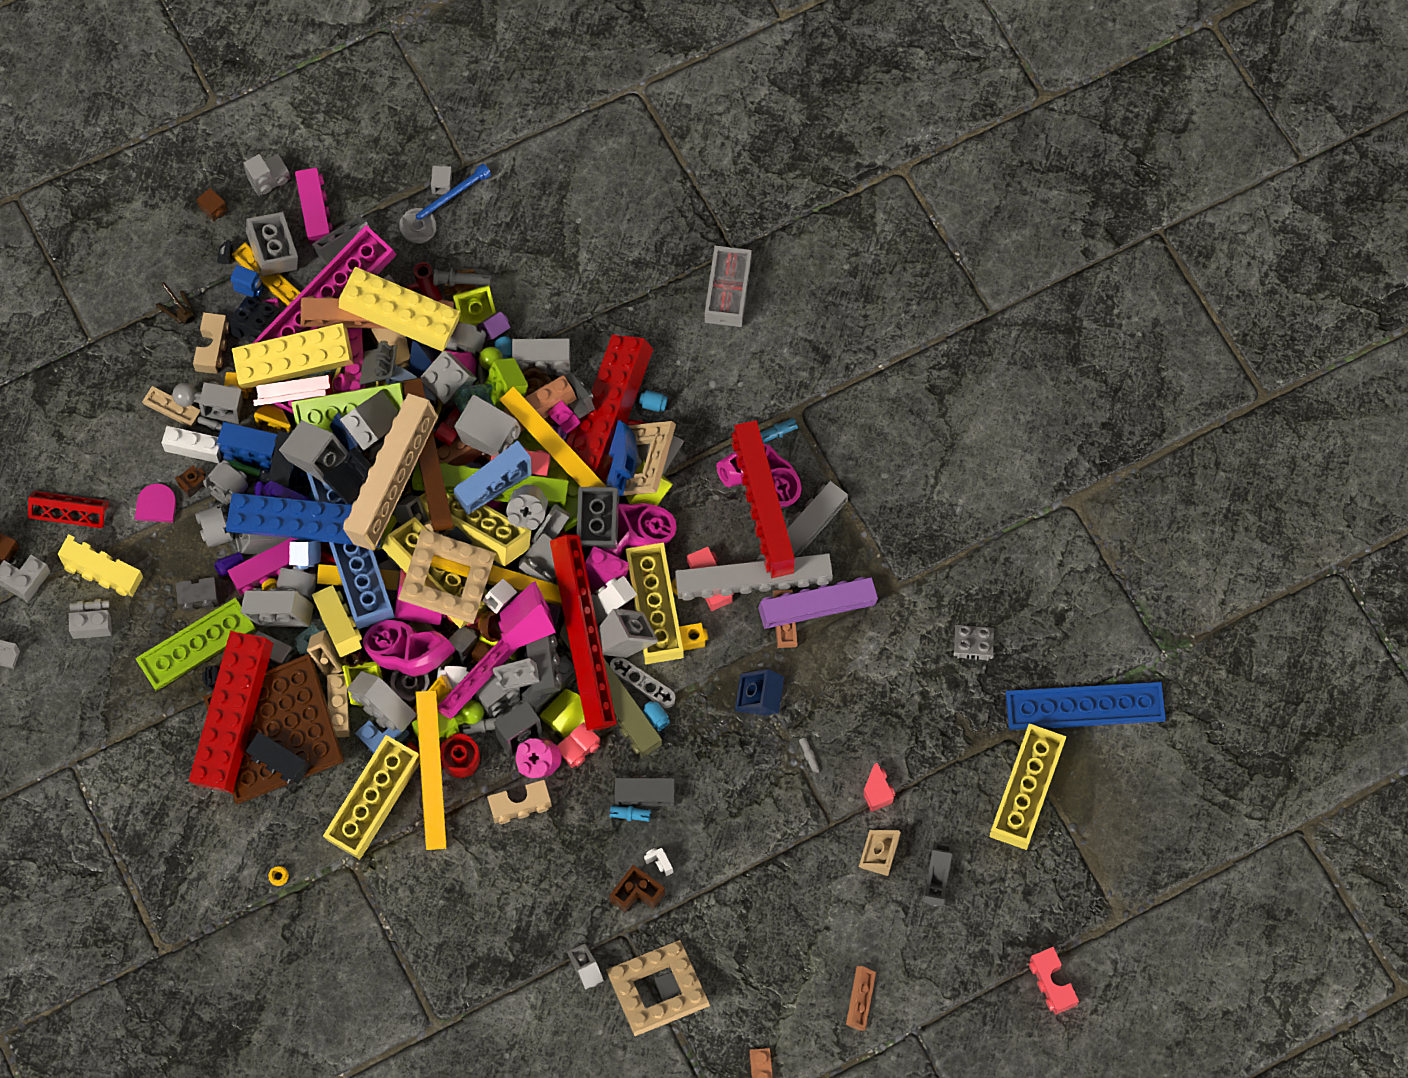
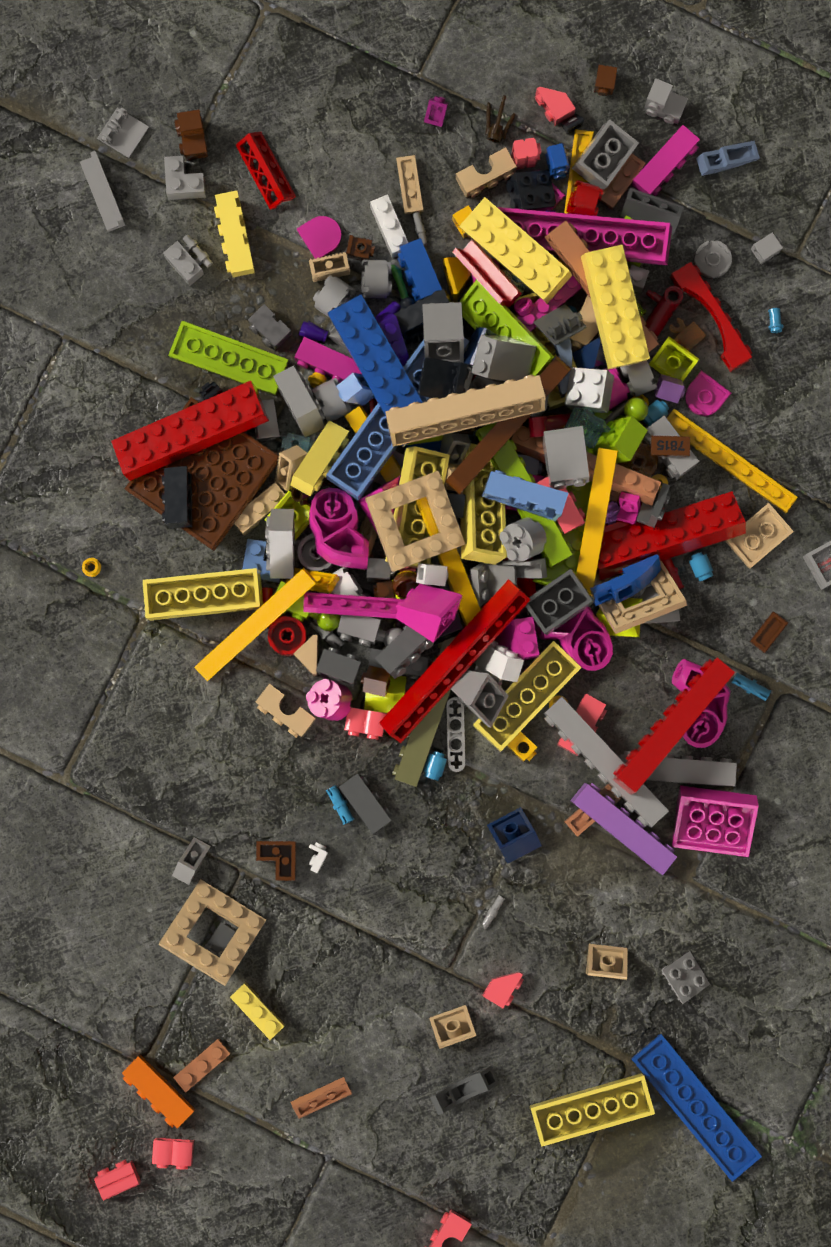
camera: 50 degrees right, 15 degrees up
(130, 346) = (436, 111): none -> magenta bracket
(184, 516) = (332, 265): none -> tan brick
(200, 254) = (556, 104): none -> coral slope
(215, 400) = (436, 212): light grey brick -> none
(220, 299) = (526, 153): none -> coral brick
(292, 281) = (584, 199): none -> red brick
(306, 263) = (622, 181): none -> nougat plate
(347, 159) = (727, 157): none -> sand blue slope
(452, 278) = (684, 324): dark grey pin -> none
(480, 173) = (797, 276): blue piece -> none
(491, 749) = (308, 654): none -> tan slope
(501, 212) = (775, 320): none -> dark azure pin
(502, 258) = (690, 282): none -> red arch
(516, 674) = (377, 637): light grey hinge -> none
(520, 305) = (705, 395): none -> dark pink tile
(540, 350) = (670, 446): none -> reddish brown tile
(551, 708) = (376, 681): none -> reddish brown brick
(595, 320) = (732, 462): none -> yellow tile
(665, 338) = (762, 535): none -> tan plate
(745, 388) = (768, 632): none -> reddish brown tile
(759, 996) = (257, 1011): none -> light yellow arch
(864, 531) = (714, 821): none -> dark pink slope
(917, 693) = (607, 961): none -> tan slope

